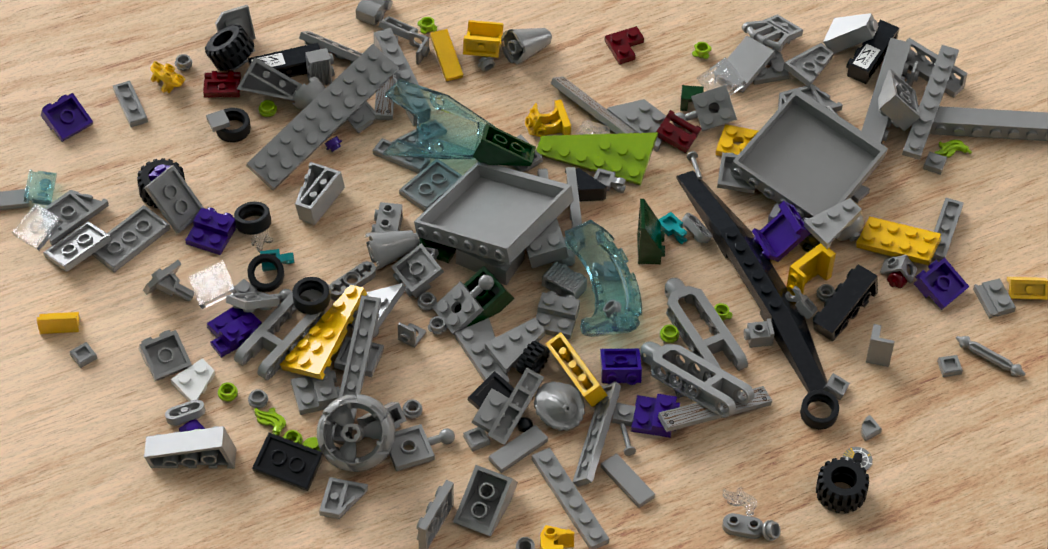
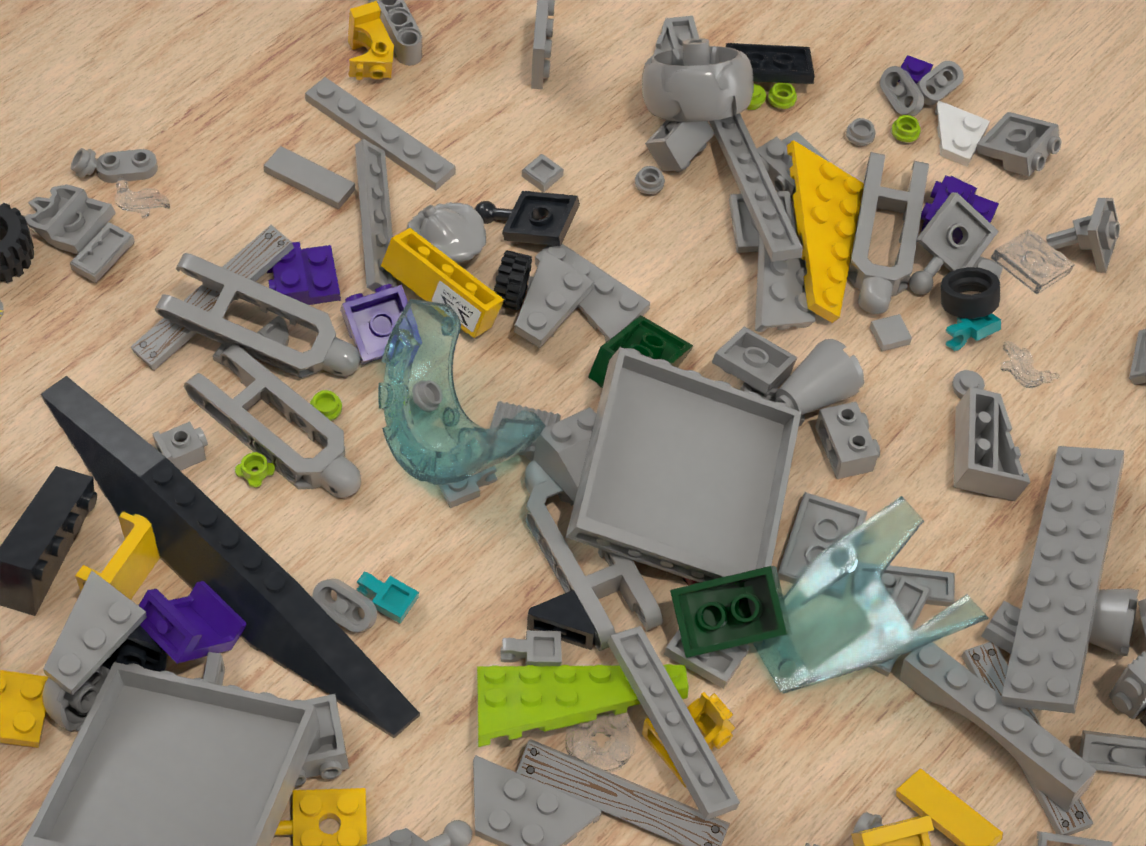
camera: 155 degrees right, 5 degrees up
(83, 355) = (1124, 123): light grey tile -> none
(191, 448) = (891, 33): light grey wedge -> none
(211, 230) = (1096, 346): dark purple plate -> none
(214, 412) = (902, 94): none -> light grey plate
(253, 226) = (1061, 360): black tyre -> none
(271, 418) = (828, 117): lime piece -> none
(299, 234) = (964, 380): none -> light grey plate
(313, 307) = (883, 238): black tyre -> none
(324, 273) = (890, 332): none -> light grey tile
(333, 144) = (1021, 556): dark purple plate -> none
(355, 273) = (855, 331): light grey beam -> none
(408, 334) = (712, 272): light grey bracket -> none
(422, 450) = (622, 143): light grey plate -> none
(423, 48) = (996, 815): light grey bracket -> none
(426, 297) = (715, 332): light grey plate -> none
(437, 321) = (683, 301): light grey plate -> none
(469, 305) = (661, 329): light grey plate -> none
(485, 500) = (488, 92): light grey slope -> none
(490, 410) = (538, 191): light grey plate -> none
(515, 406) = (505, 207): light grey slope -> none
(518, 448) = (479, 173): light grey tile -> none
(557, 313) = (513, 378): light grey plate -> none
(560, 115) = (673, 723): none -> light grey plate
(623, 414) = (349, 265): light grey plate -> none
(629, 450) = (322, 215): light grey pin -> none
(649, 236) = (416, 534): dark green slope -> none
(675, 135) = (449, 791): dark red plate -> none
(692, 156) = (404, 761): light grey pin -> none
(774, 466) = (102, 252): none -> light grey plate
(790, 493) = (68, 217): none -> light grey plate
(803, 303) = (109, 509): light grey plate -> none
(822, 396) = (56, 368): black tyre -> none
(823, 290) = (86, 553): light grey plate -> none
(836, 386) = (33, 402): light grey tile -> none

